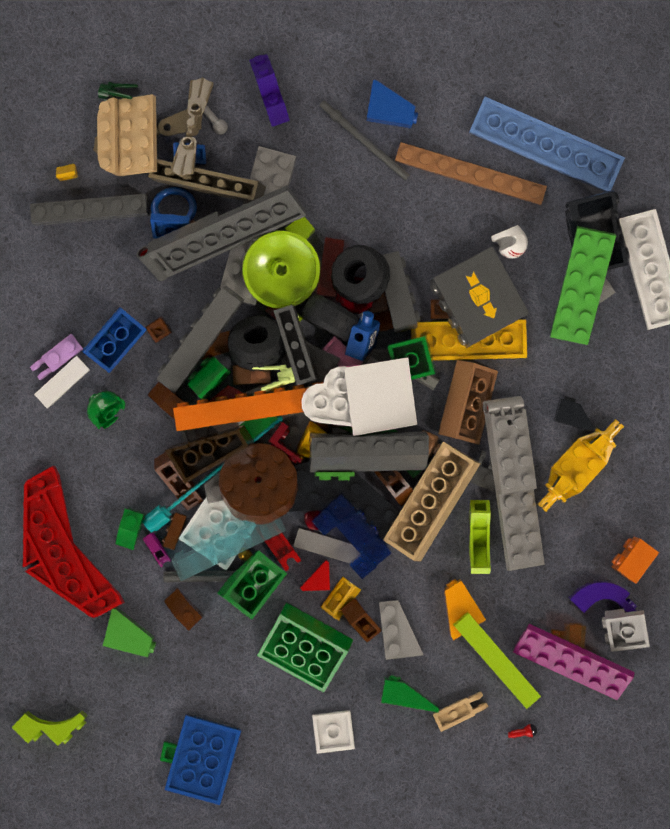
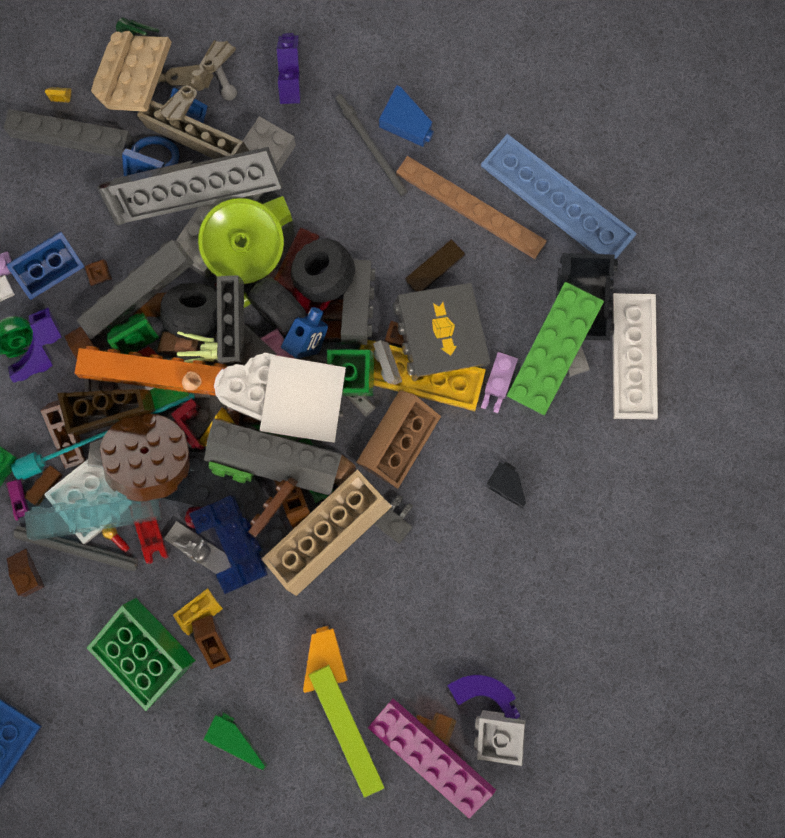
camera: 15 degrees right, 10 degrees down
(131, 421) = (37, 356): none -> dark purple arch
(252, 584) = (105, 565): green slope -> none
(281, 409) = (191, 381): none -> light nougat hinge
(319, 579) = (180, 582): red slope -> none
(326, 548) = (197, 551): none -> flat silver piece
(333, 731) = (142, 759): white tile -> none
(380, 494) = (272, 505): none -> reddish brown plate
(397, 633) = (246, 669): light grey wing -> none
(435, 334) = (385, 357): none -> light grey plate
(454, 238) = (435, 266): none -> dark brown tile
(458, 712) = (286, 778): tan hinge -> none
(479, 536) = (367, 586): lime arch -> none
(512, 242) = (493, 284): white helmet -> none
(514, 481) = (423, 539): light grey hinge -> none
(529, 730) = (360, 824): red piece -> none
(540, 324) = (499, 379): none -> lavender hinge
(580, 465) = (500, 541): yellow plate -> none
(634, 559) = (531, 661): orange brick -> none

